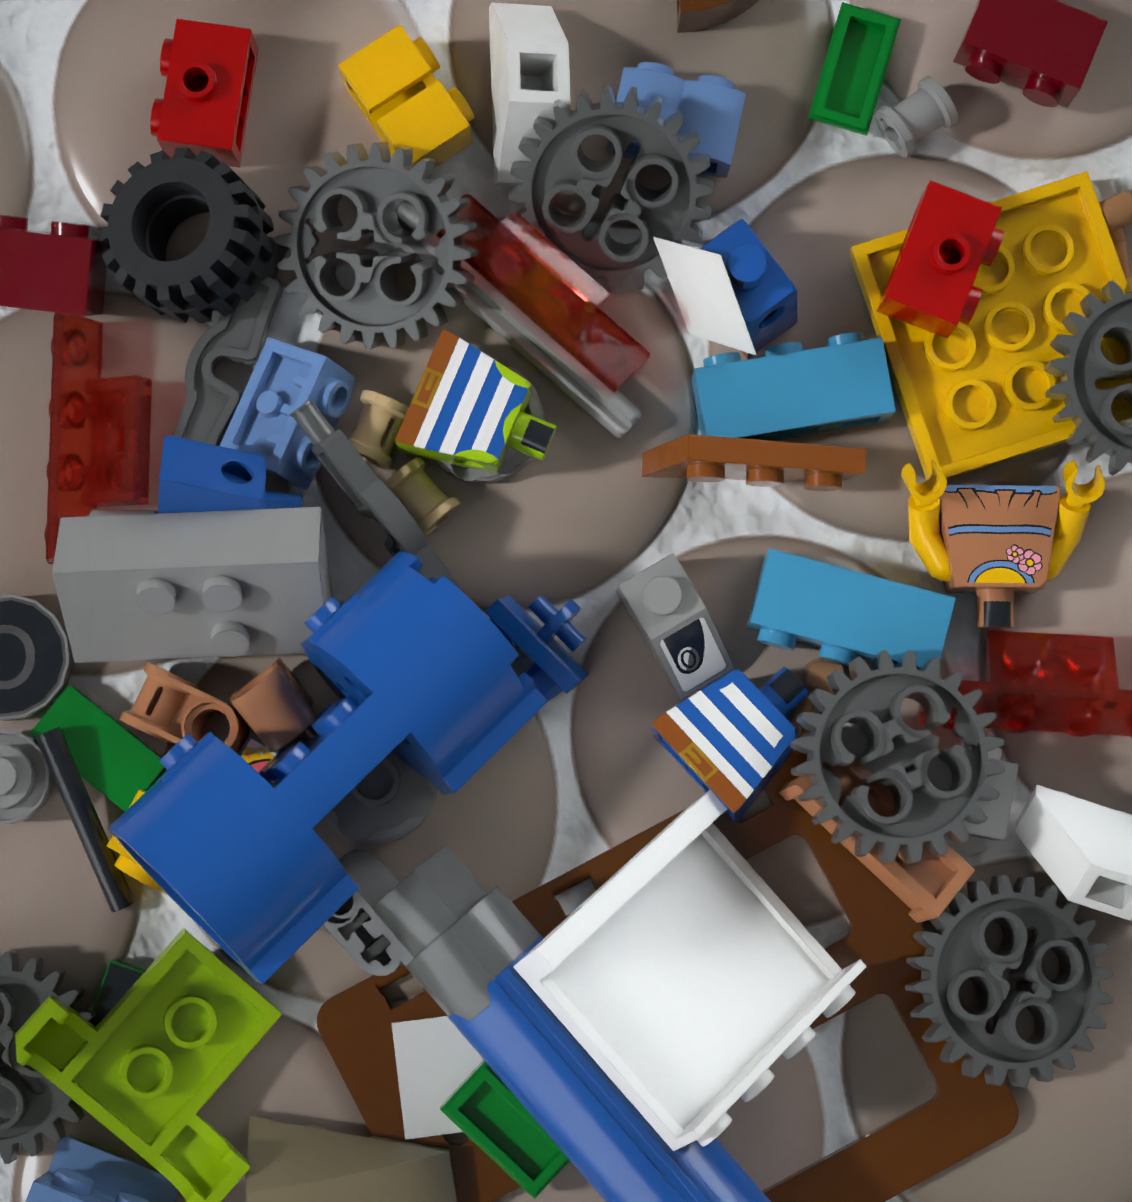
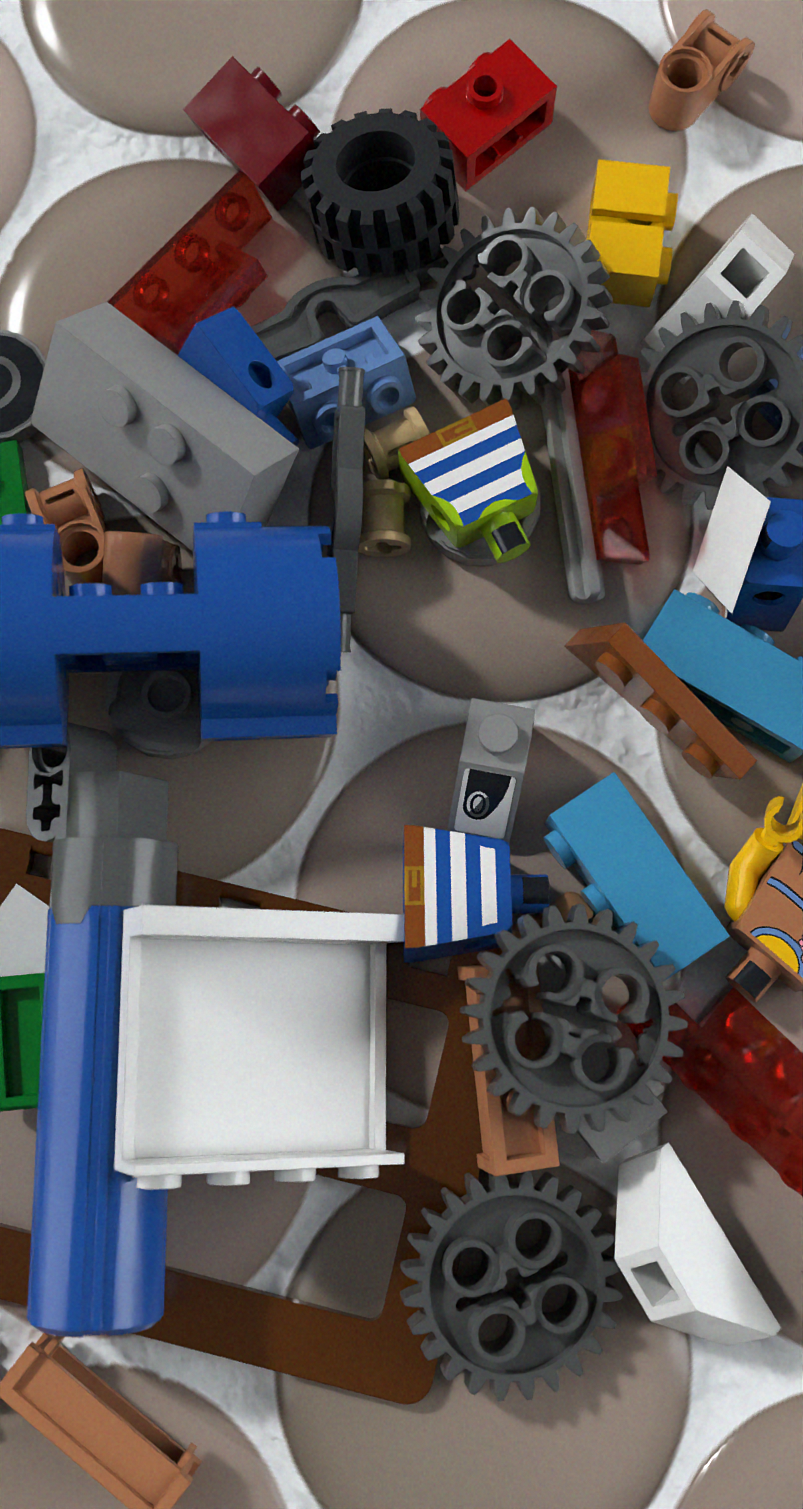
camera: 50 degrees right, 5 degrees down
(553, 667) = (372, 723): blue hips -> none

